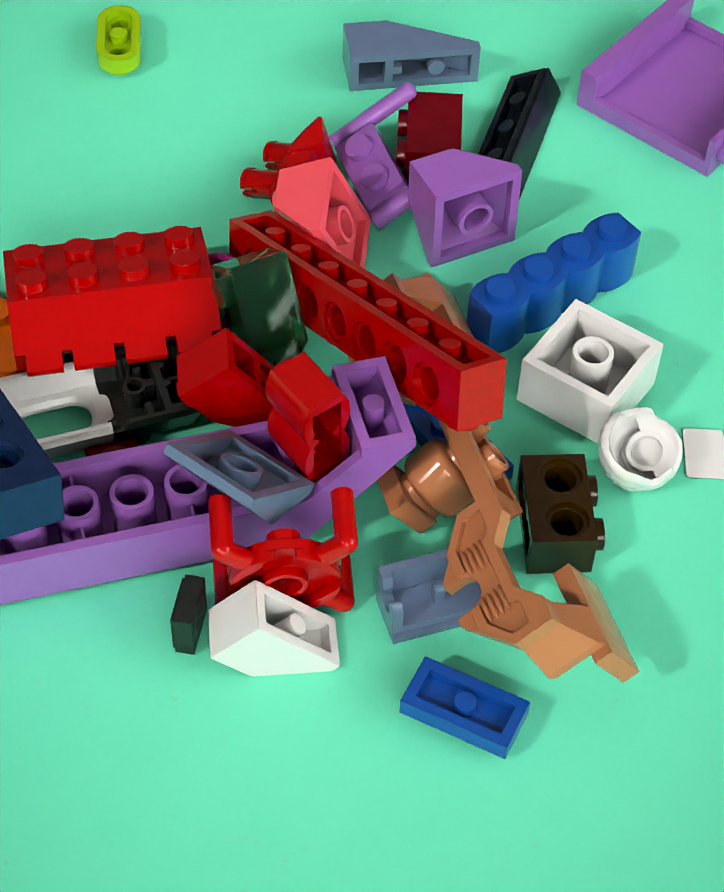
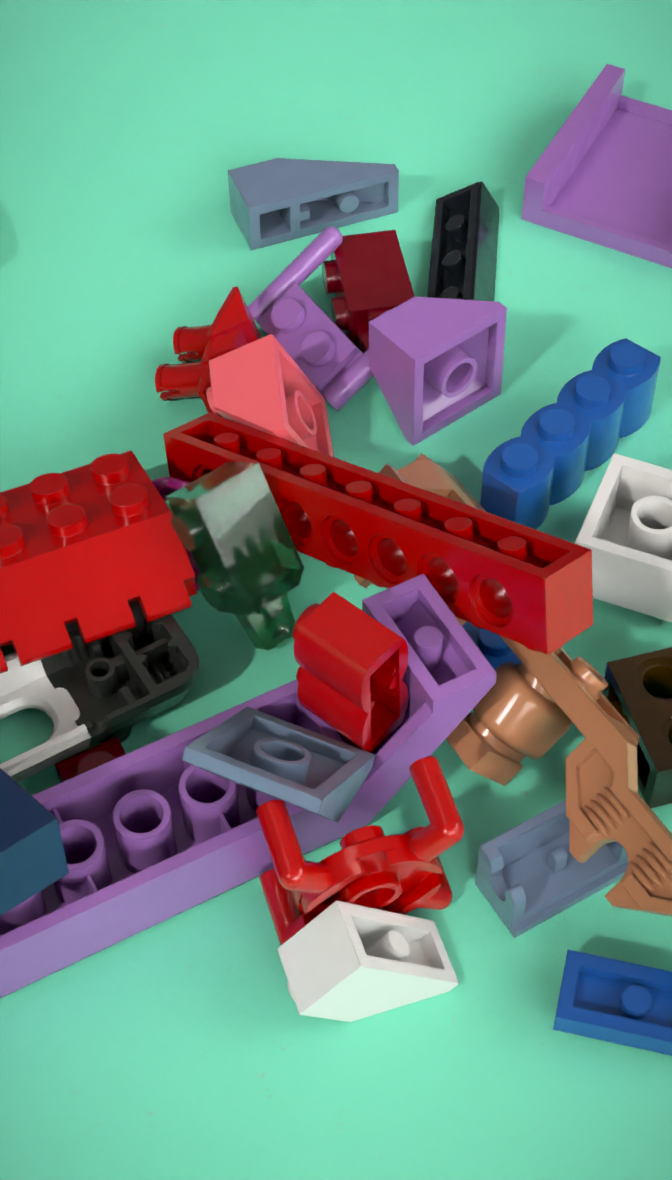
camera: 10 degrees left, 0 degrees up
(188, 614) = (251, 959): pearl dark grey tile -> none
(224, 380) = (226, 643): red slope -> none

